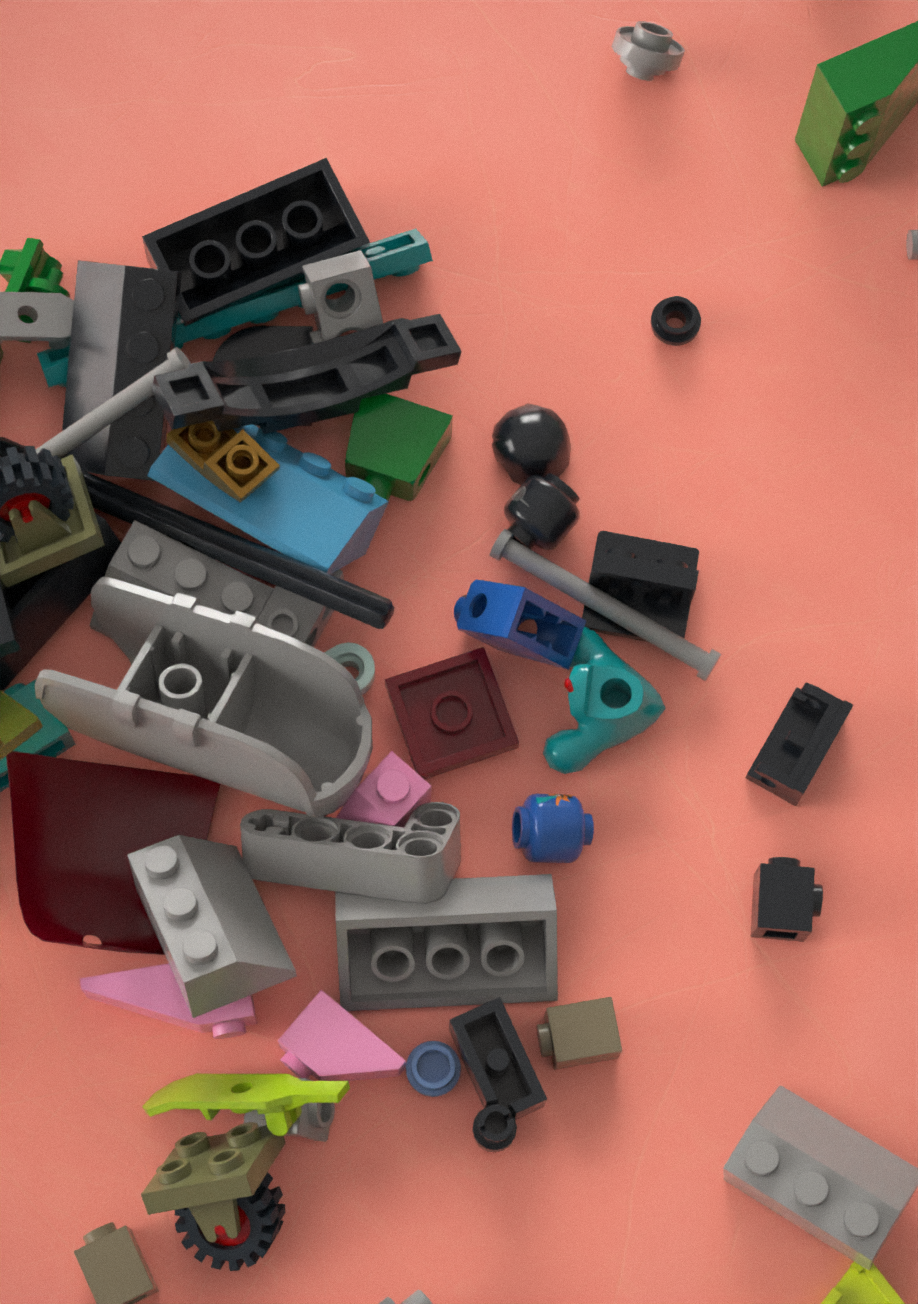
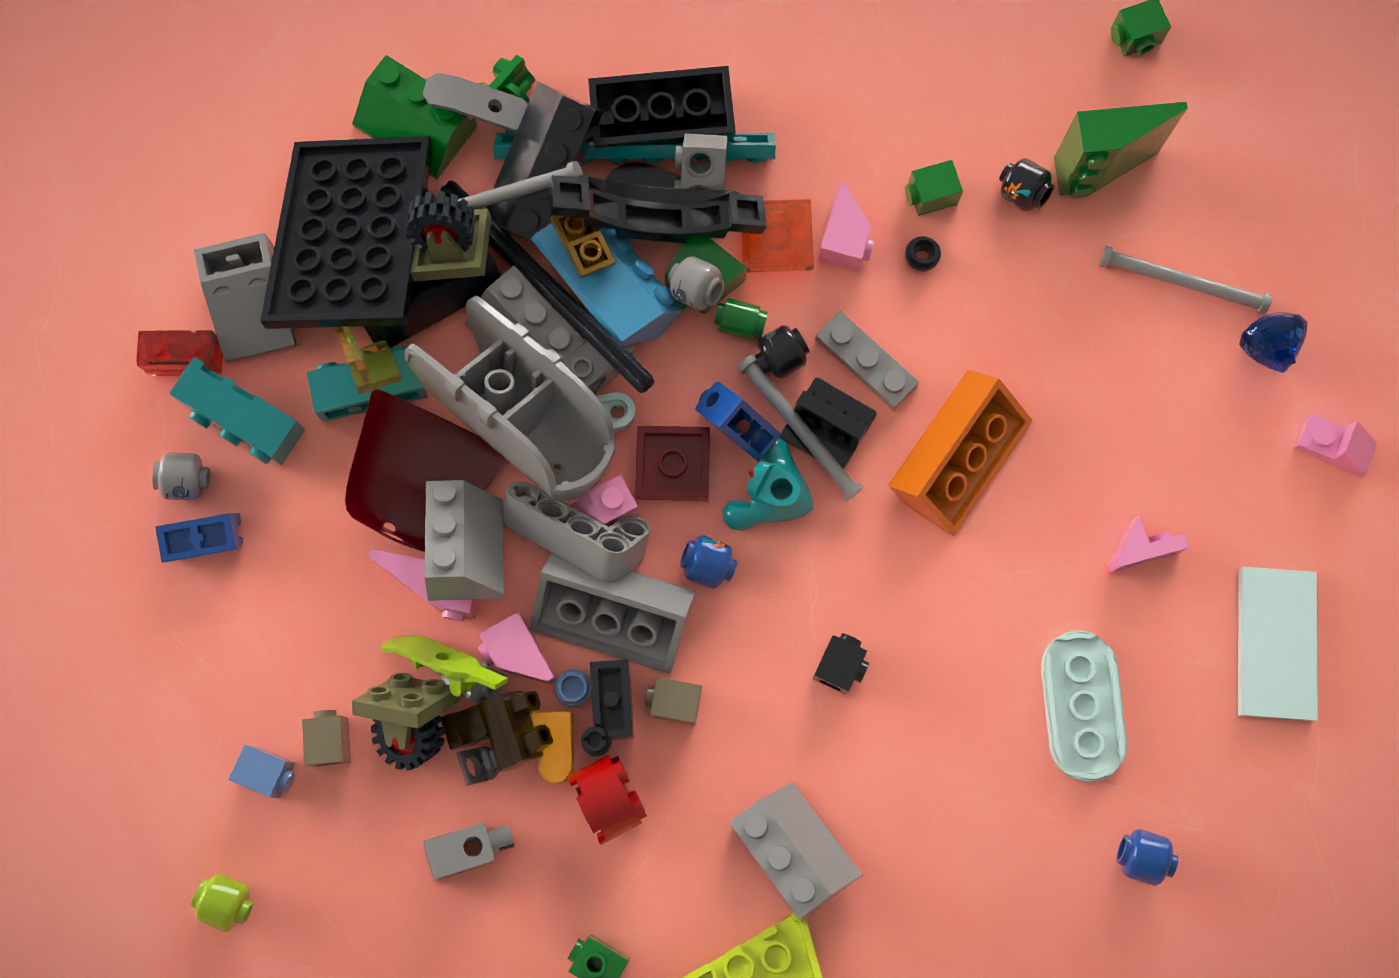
camera: 25 degrees right, 5 degrees up
(368, 1152) = (509, 728): none -> dark brown hips
(396, 458) = (696, 283): none -> light grey head
(451, 1172) = (559, 756): none -> light orange leg
(469, 489) = (740, 319): none -> green brick
(489, 369) = (785, 241): none -> clear orange plate
(531, 443) = (795, 303): black hair -> none
(543, 1199) = (605, 798): none -> red brick
(565, 327) = (846, 233): none -> bright pink slope
(647, 50) = (975, 62): light grey plate -> none
(656, 486) = (866, 360): none -> light grey plate
(657, 230) = (934, 188): none -> green brick
(776, 185) = (1026, 184): none -> black head
(799, 742) = (893, 564): black hinge -> none
(829, 561) = (961, 451): none -> orange slope

